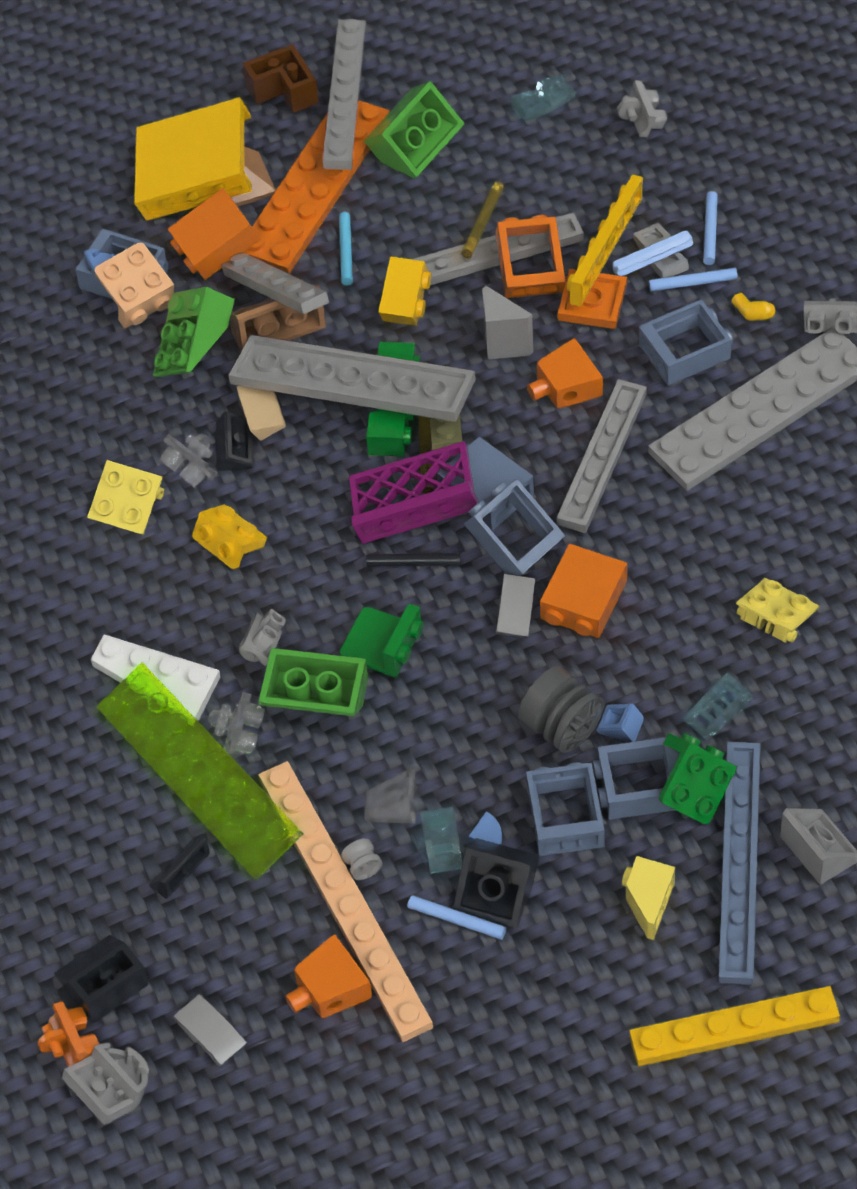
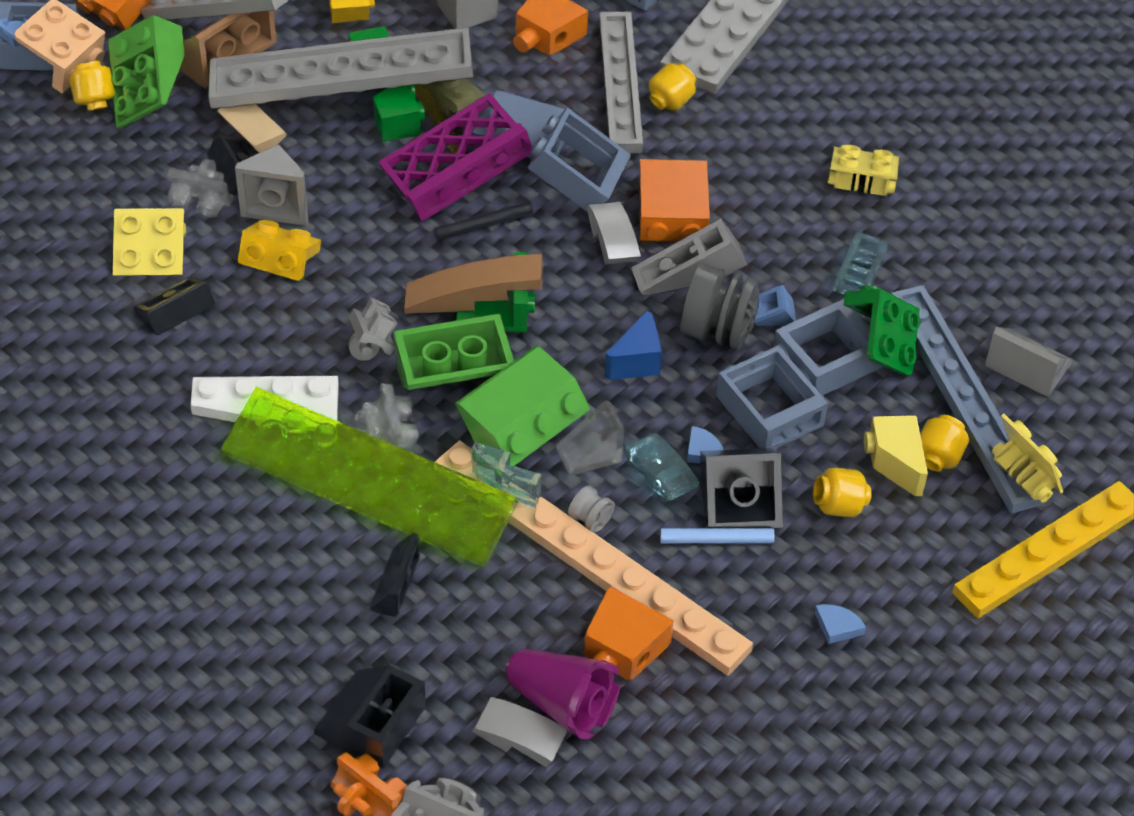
camera: 30 degrees left, 5 degrees down
(122, 562) = (175, 305): none -> black slope
(144, 331) = (92, 85): none -> yellow head
(240, 477) = (272, 188): none -> light grey slope
(259, 1010) = (566, 687): none -> magenta cone
(298, 806) = (495, 470): none -> clear light blue slope
(344, 750) = (523, 405): none -> bright green slope
(364, 621) = (463, 285): none -> medium nougat slope
(475, 726) = (636, 352): none -> blue slope
(514, 1029) = (838, 623): none -> medium blue tile
(577, 915) = (841, 492): none -> yellow head
(580, 653) = (677, 264): none -> light grey slope
(643, 475) = (672, 87): none -> yellow head
(690, 898) = (943, 442): none -> yellow head
(742, 942) = (1028, 462): none -> light yellow hinge

